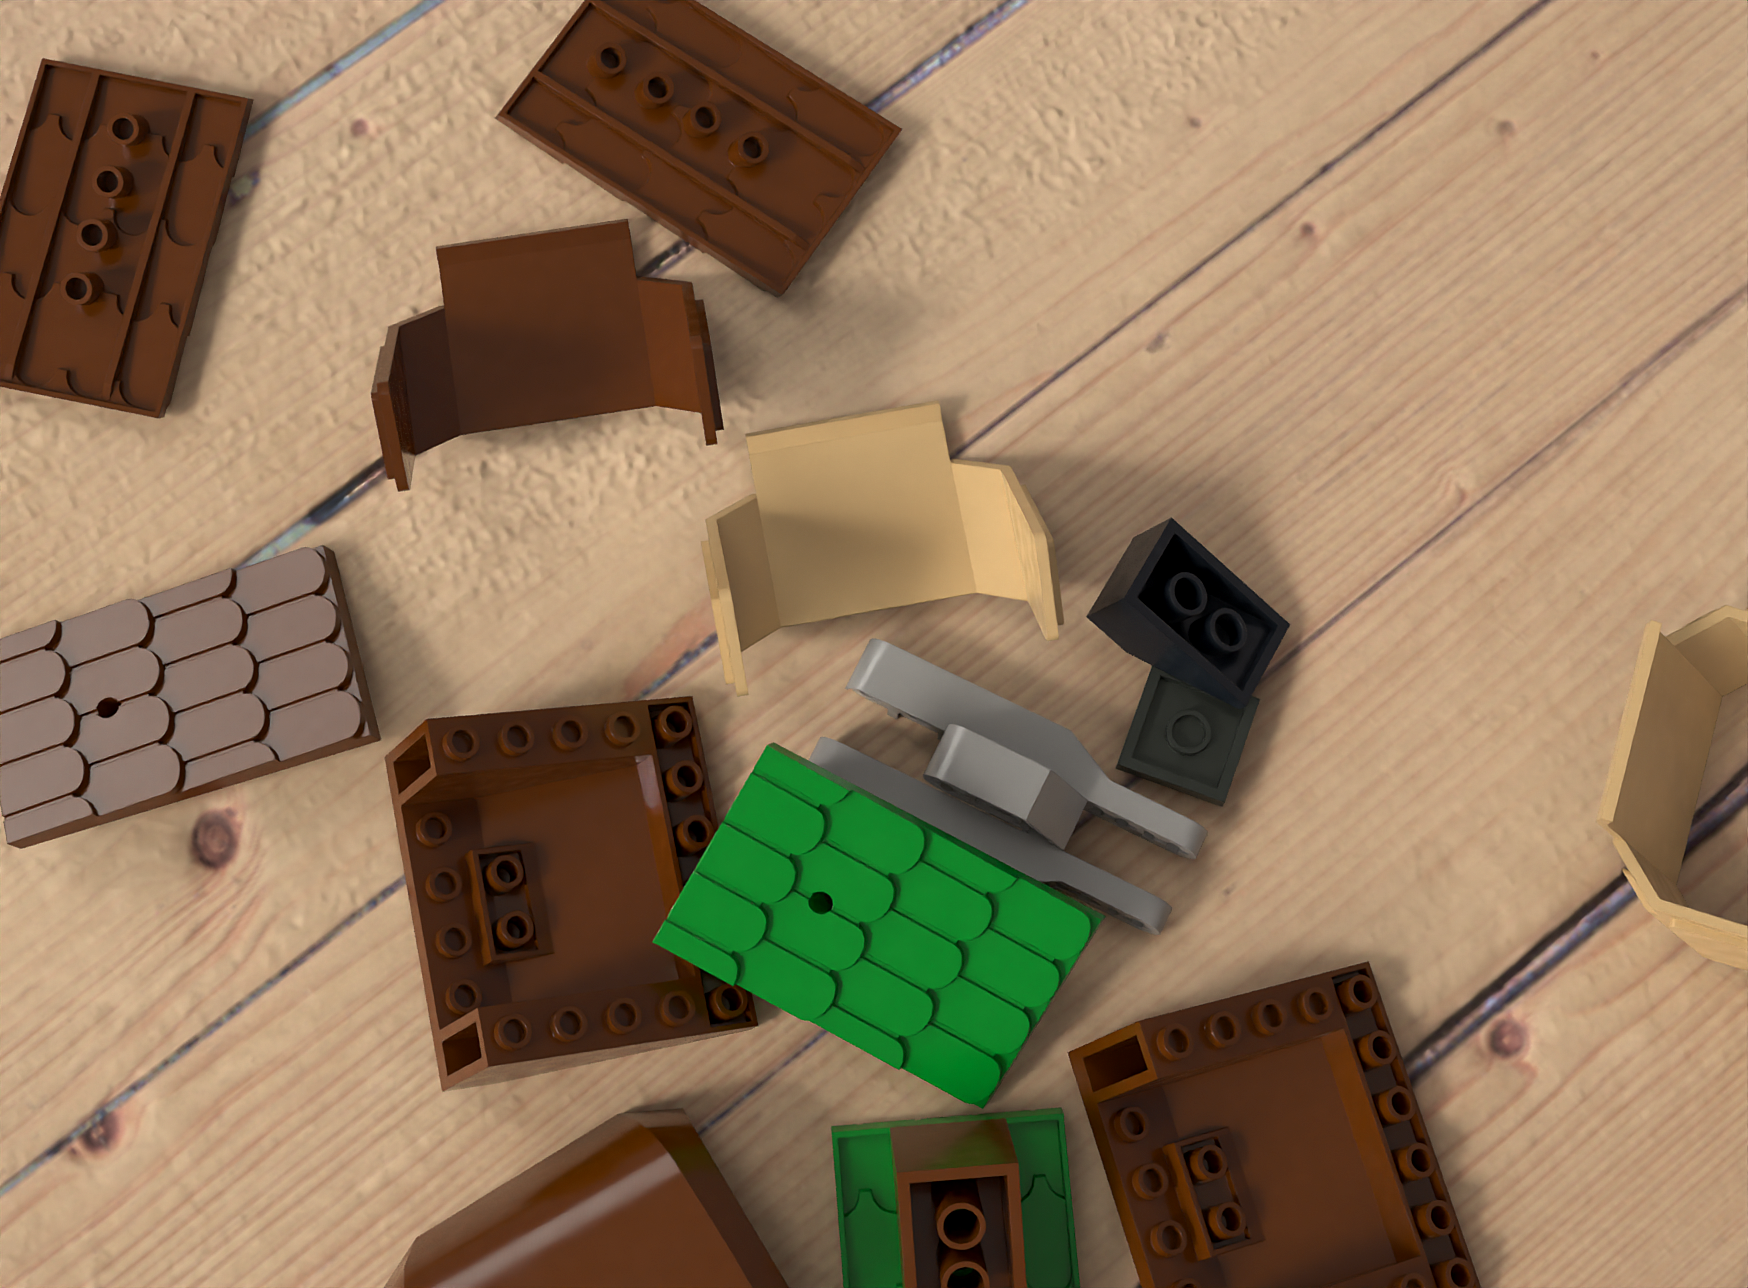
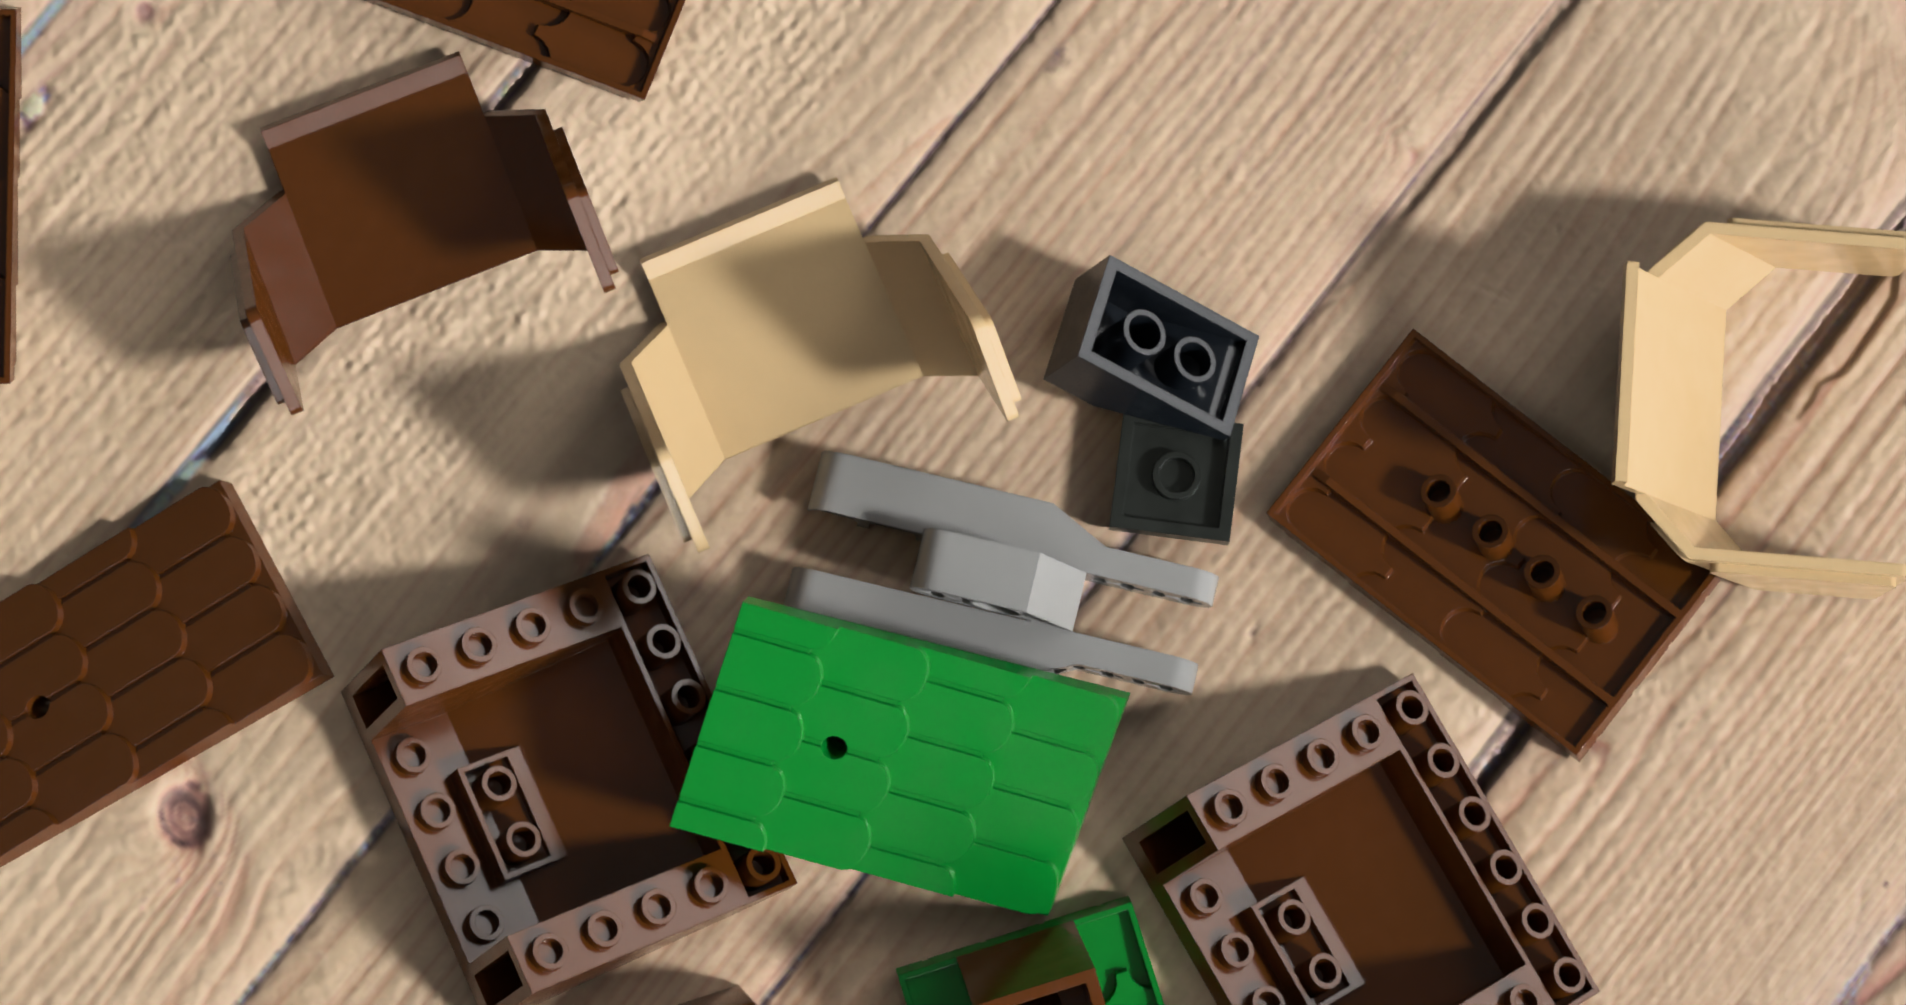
camera: 10 degrees left, 5 degrees up
(1468, 862) = (1493, 544): none -> reddish brown piece

